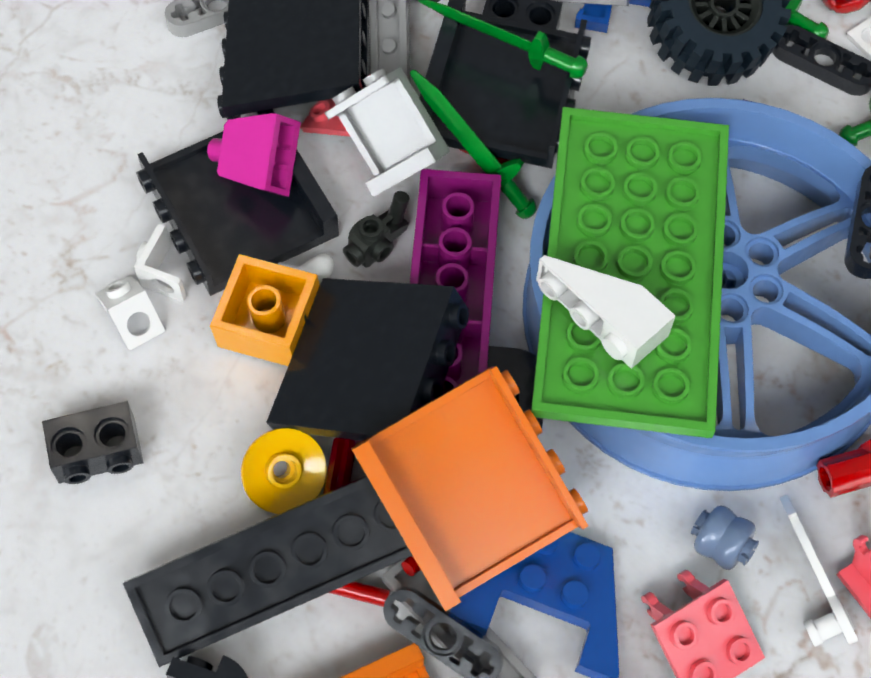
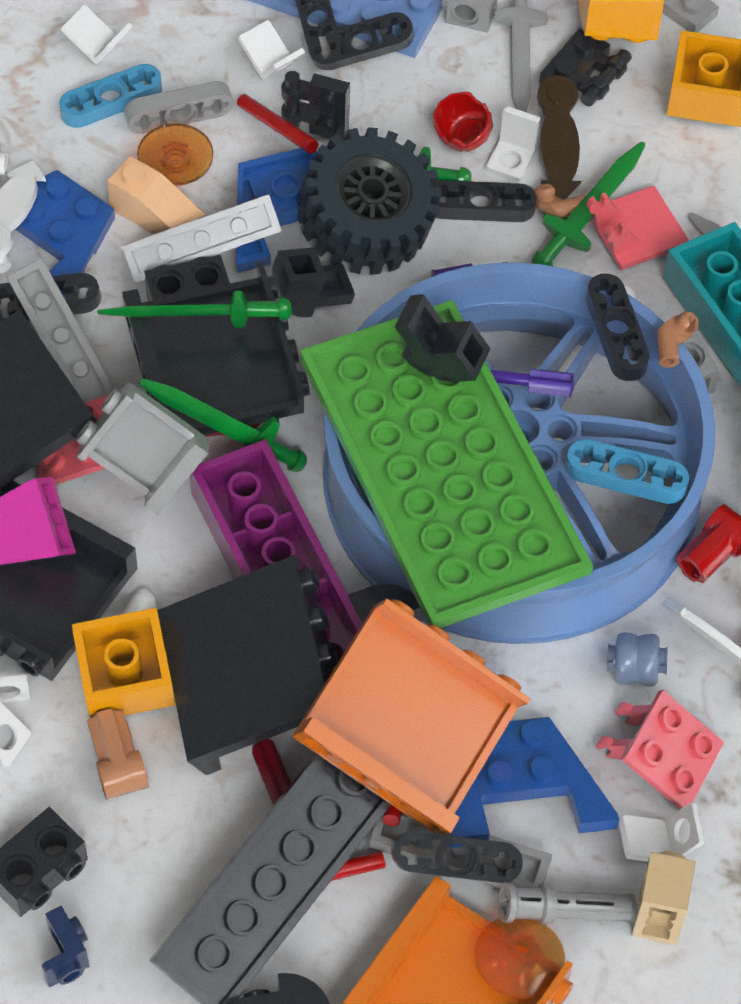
camera: 30 degrees left, 5 degrees down
(77, 524) = (69, 939): none -> dark blue bracket
(215, 394) = (118, 763): none -> nougat piece
(299, 483) = (242, 796): yellow dish -> none
(373, 236) = (176, 551): pearl dark grey piece -> none
(613, 309) = (451, 504): white slope -> none
(622, 62) = (308, 283): none -> black brick
(685, 160) = (437, 347): none -> black brick
(767, 236) = (539, 381): none -> dark purple axle
(803, 377) = (641, 461): none -> dark azure beam

